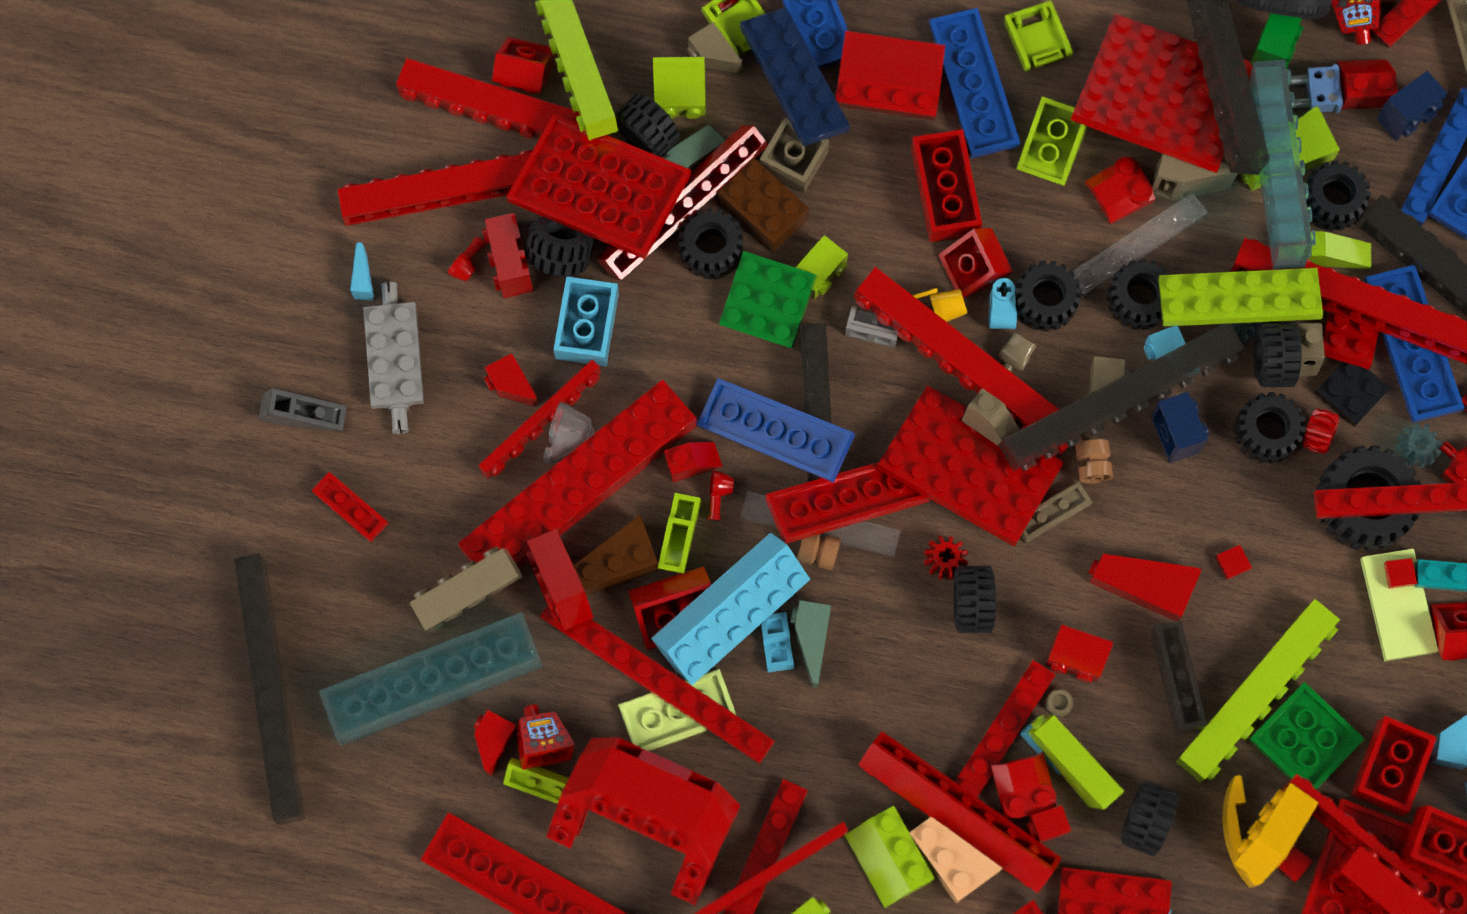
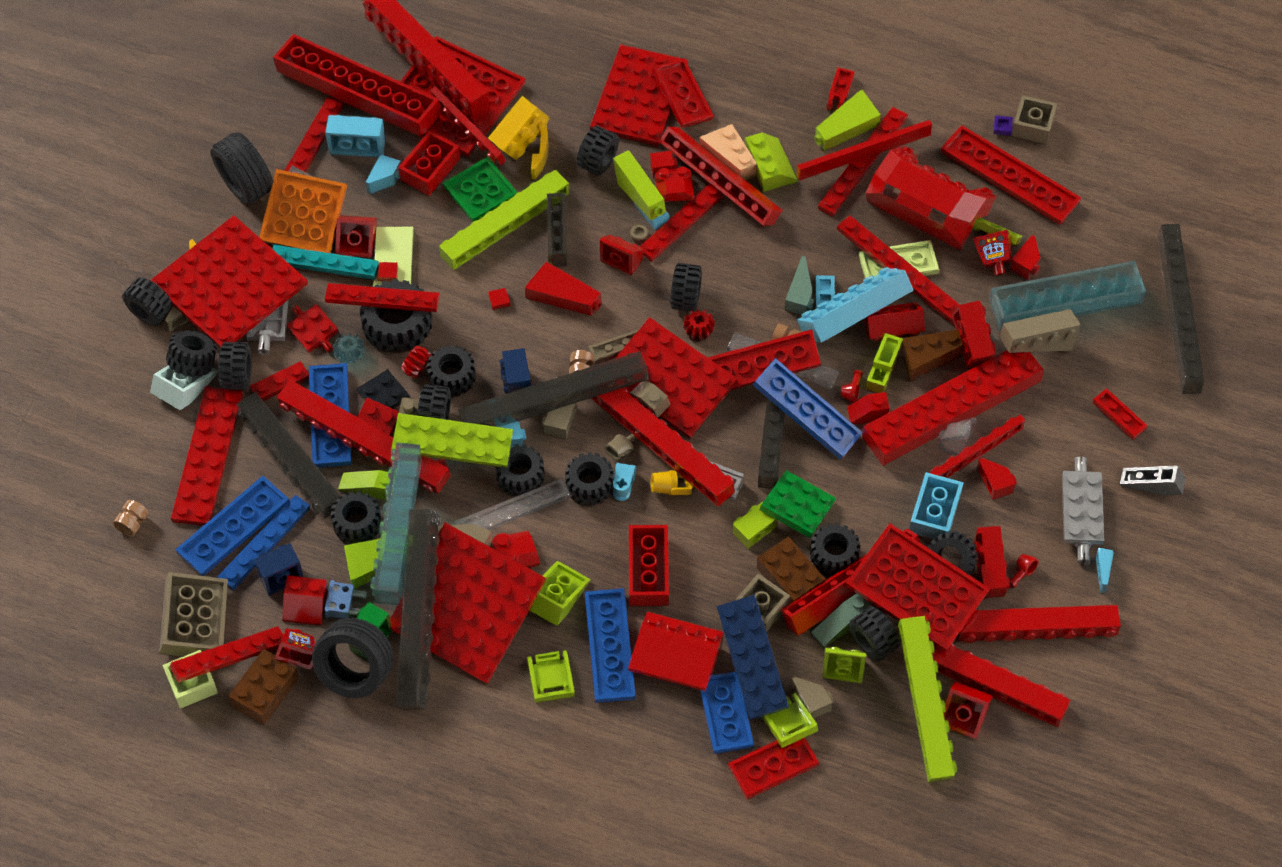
camera: 170 degrees left, 15 degrees down
(975, 261) = (635, 508): red slope -> none

